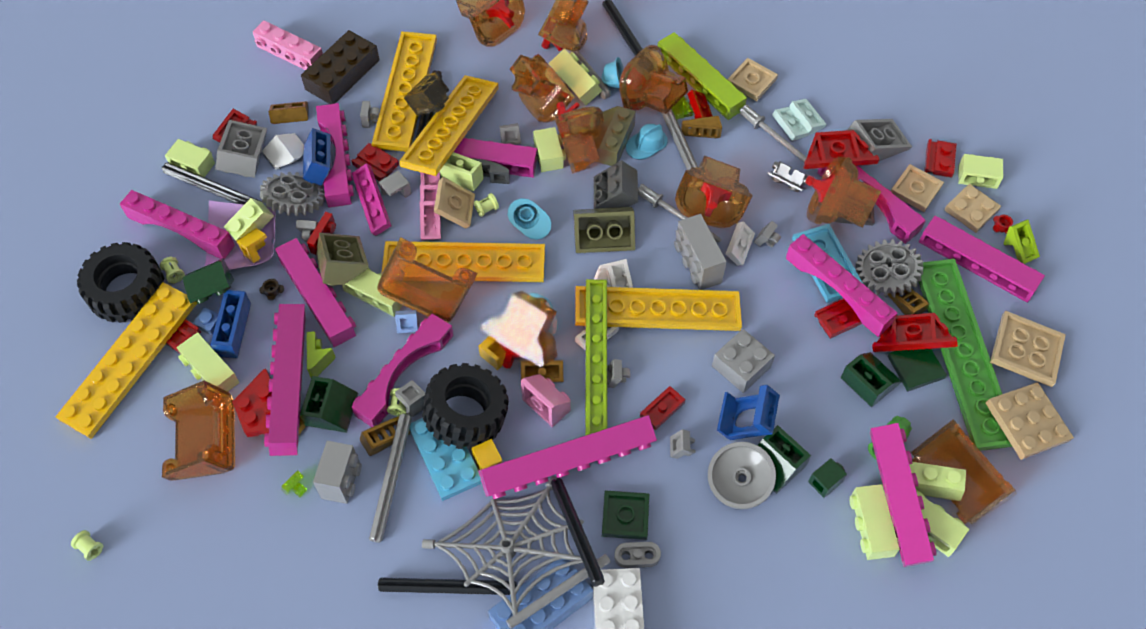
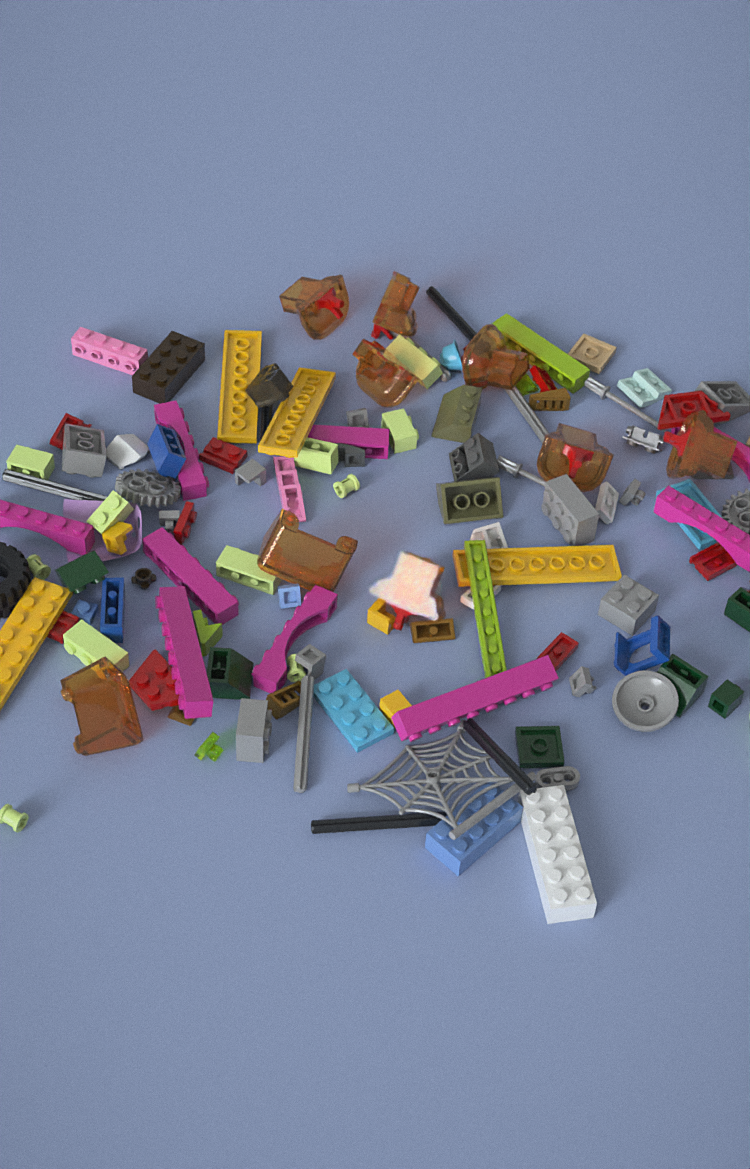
camera: 10 degrees left, 10 degrees down
(288, 112) = (122, 415): pearl gold slope -> none
(340, 258) = (212, 541): olive slope -> none
(368, 114) = (208, 410): light grey tile -> none
(371, 199) = (228, 489): dark pink plate -> none
(454, 202) = (315, 485): tan plate -> none
(471, 383) = (372, 644): black tyre -> none
(489, 260) = (373, 535): yellow plate -> none
(529, 218) = (394, 494): medium azure piece -> none
(545, 398) = (441, 653): bright pink slope -> none
(577, 132) = (429, 410): clear orange piece -> none
(616, 373) = (508, 625): light grey tile -> none
(647, 142) = (496, 418): medium azure piece -> none

